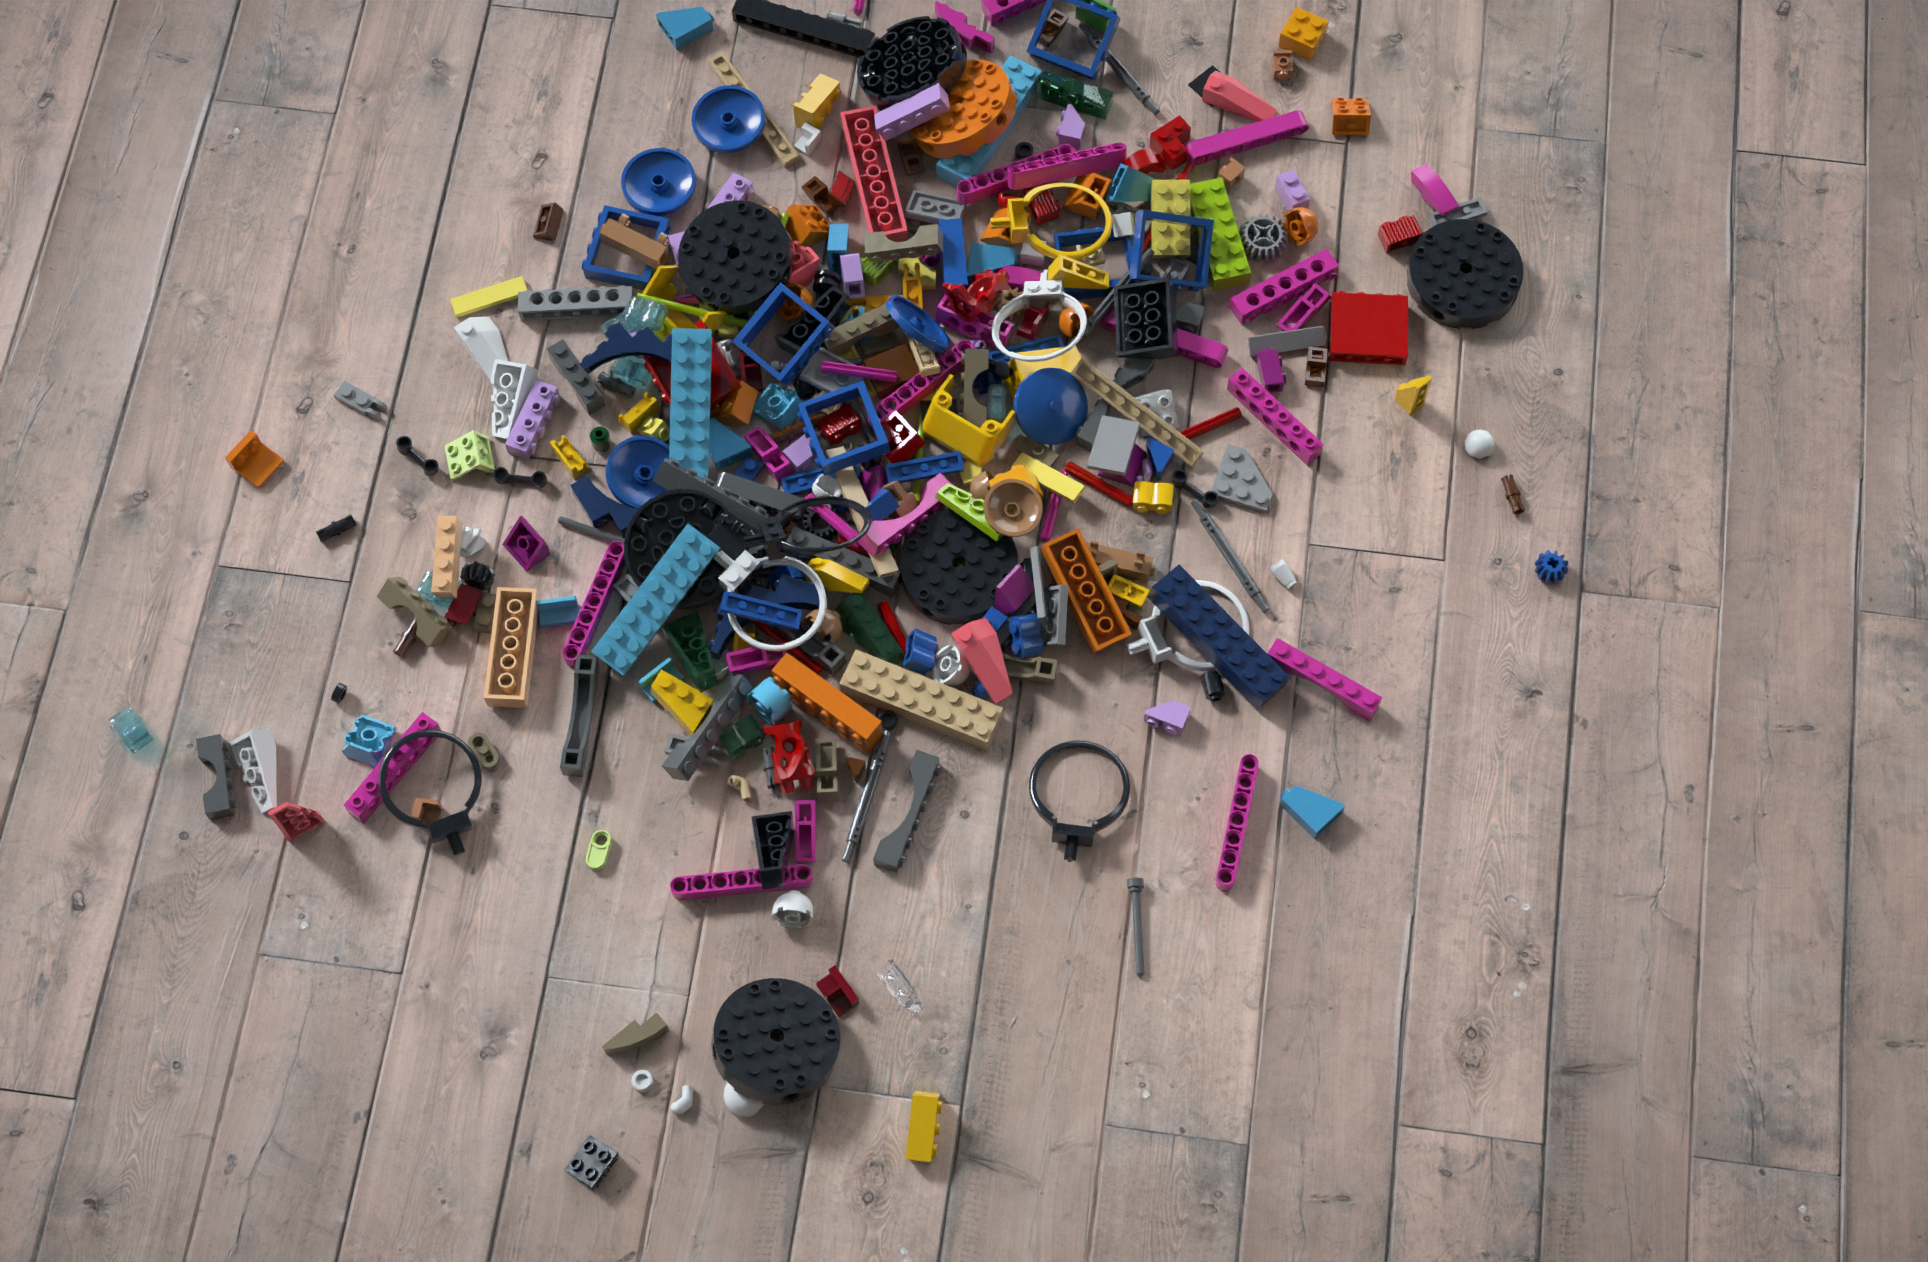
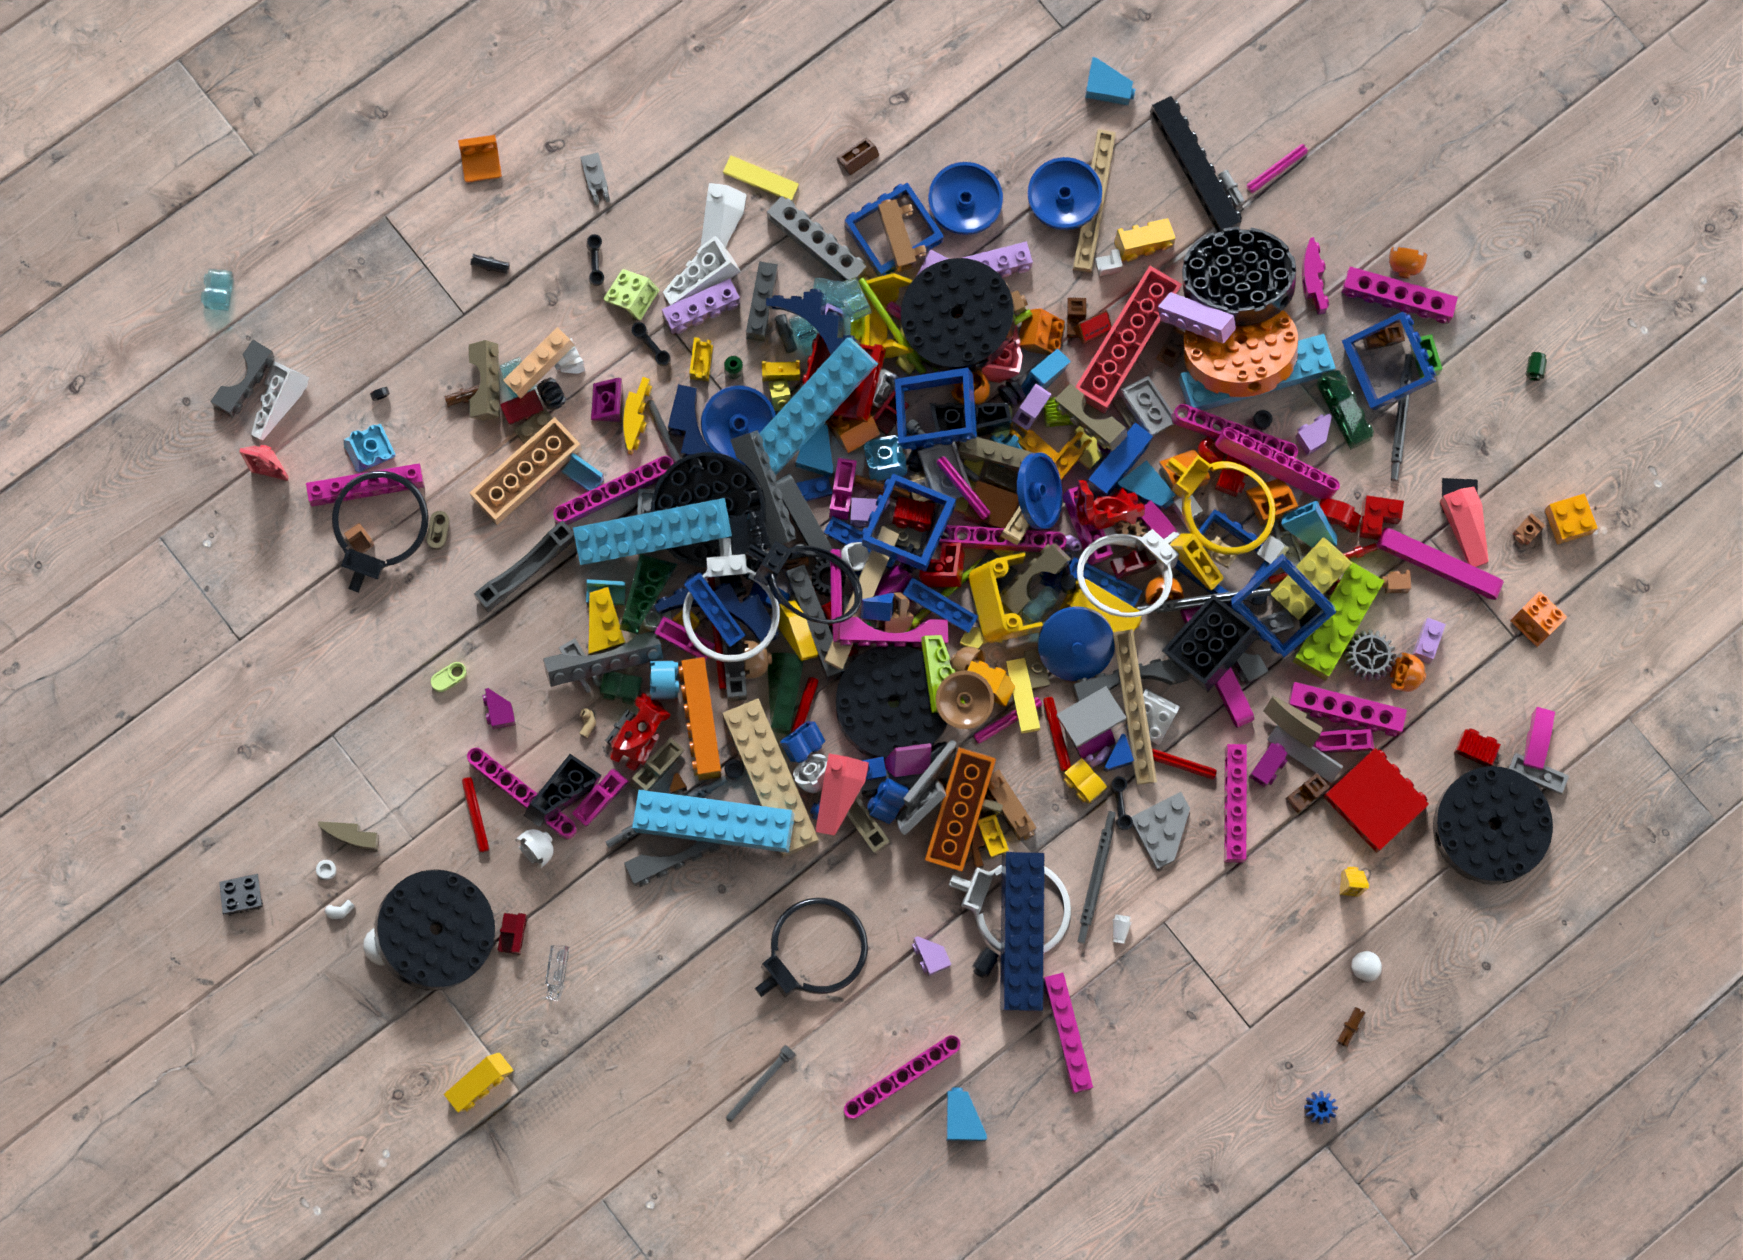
camera: 35 degrees right, 10 degrees up
(557, 539) = (633, 421): none -> yellow slope
(663, 836) = (500, 710): none -> magenta slope
(720, 931) = (475, 814): none -> red axle
(912, 763) = (713, 821): none -> medium azure brick
(1257, 325) = (1293, 721): none -> dark tan slope

